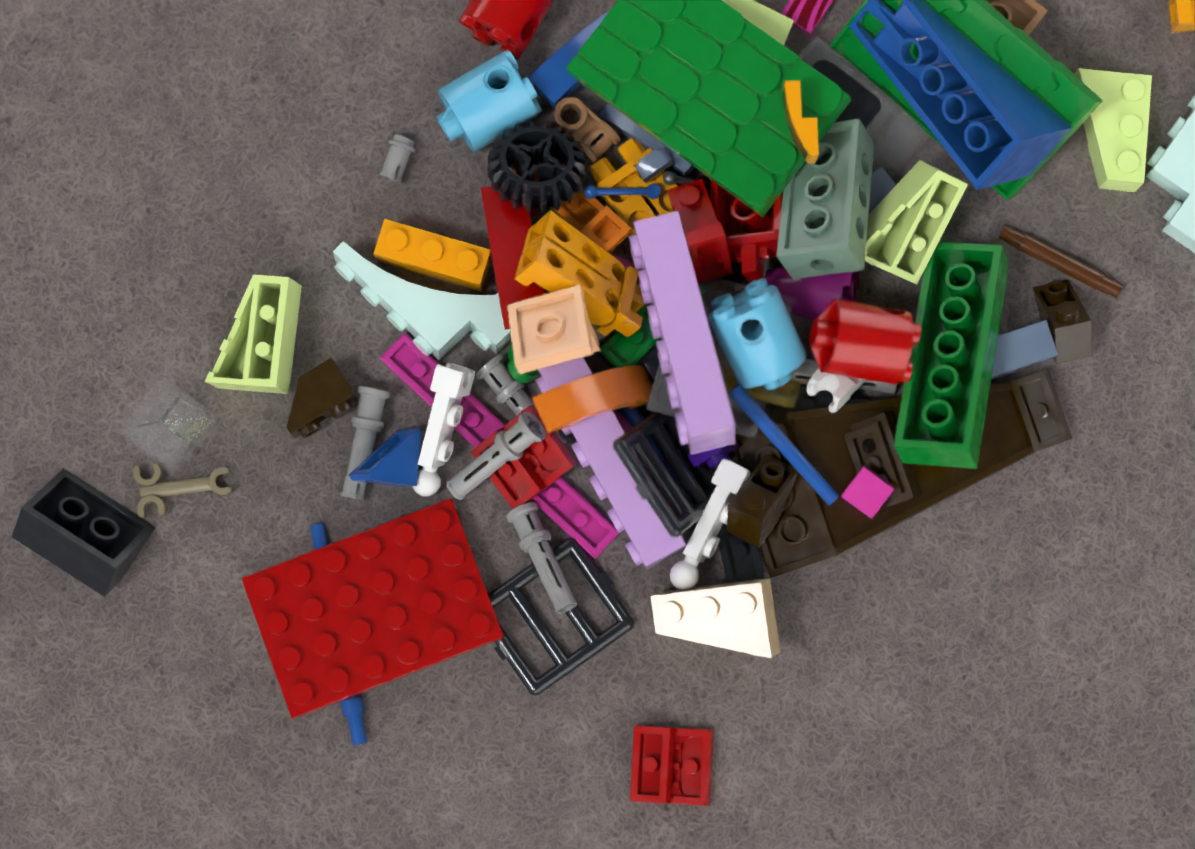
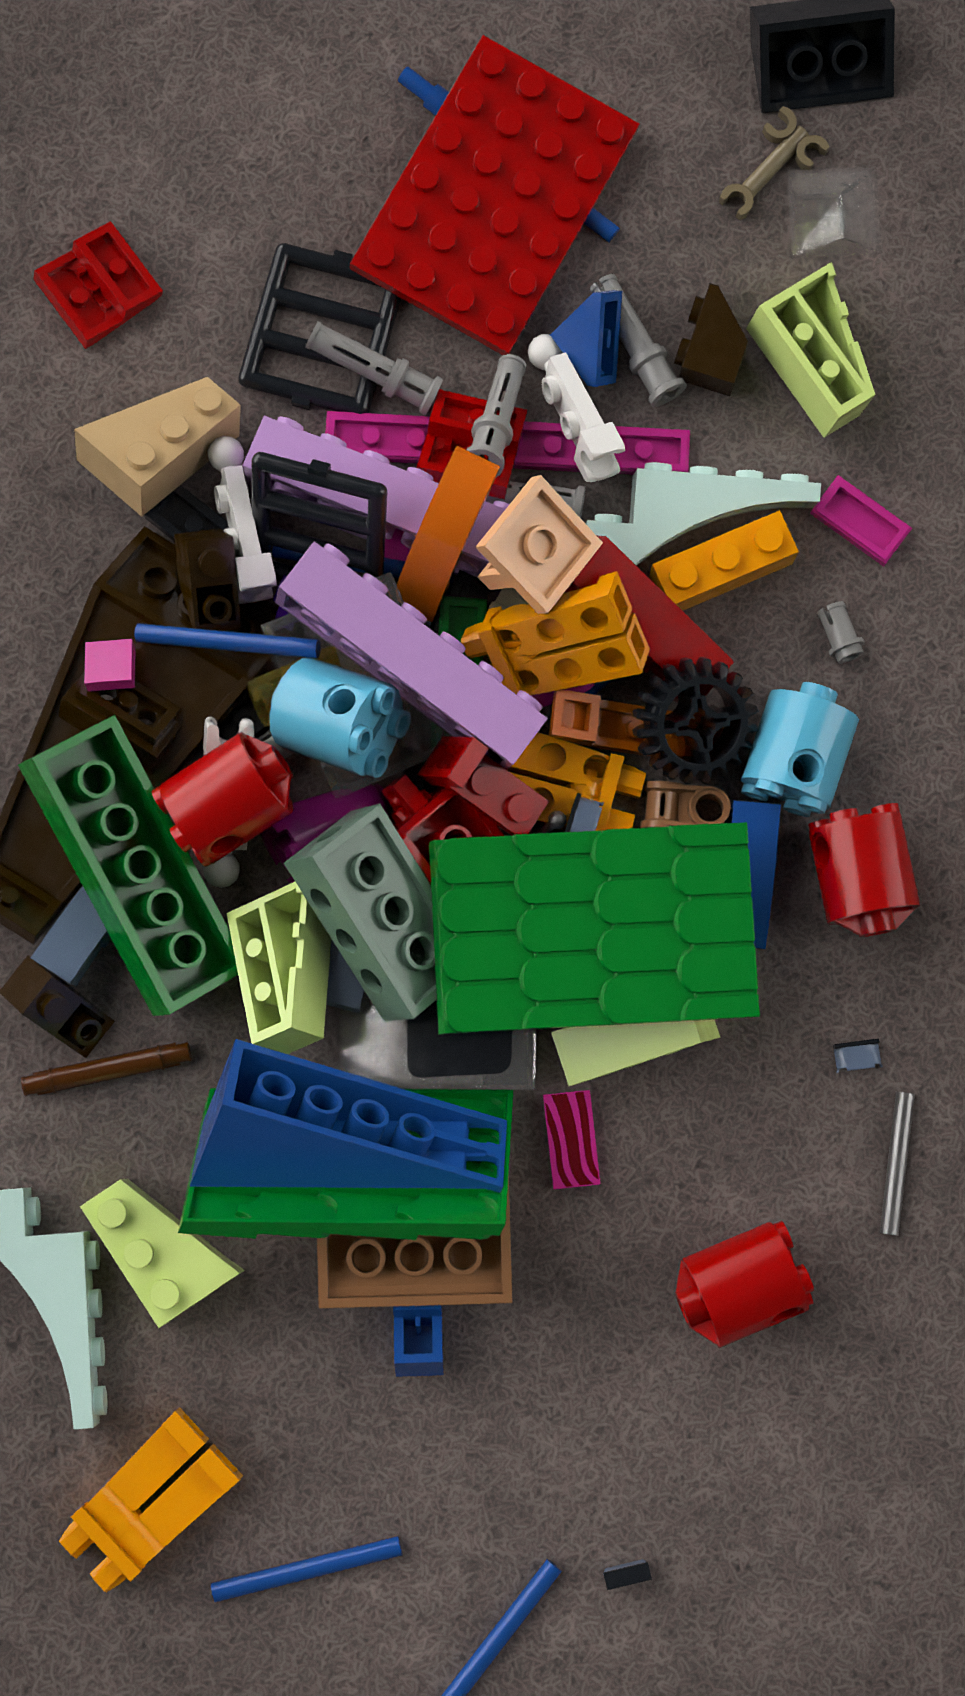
camera: 140 degrees right, 0 degrees up
(323, 216) = (861, 520): none -> dark pink tile
(652, 191) = (563, 793): blue hinge -> none
(803, 130) = (455, 947): light orange slope -> none

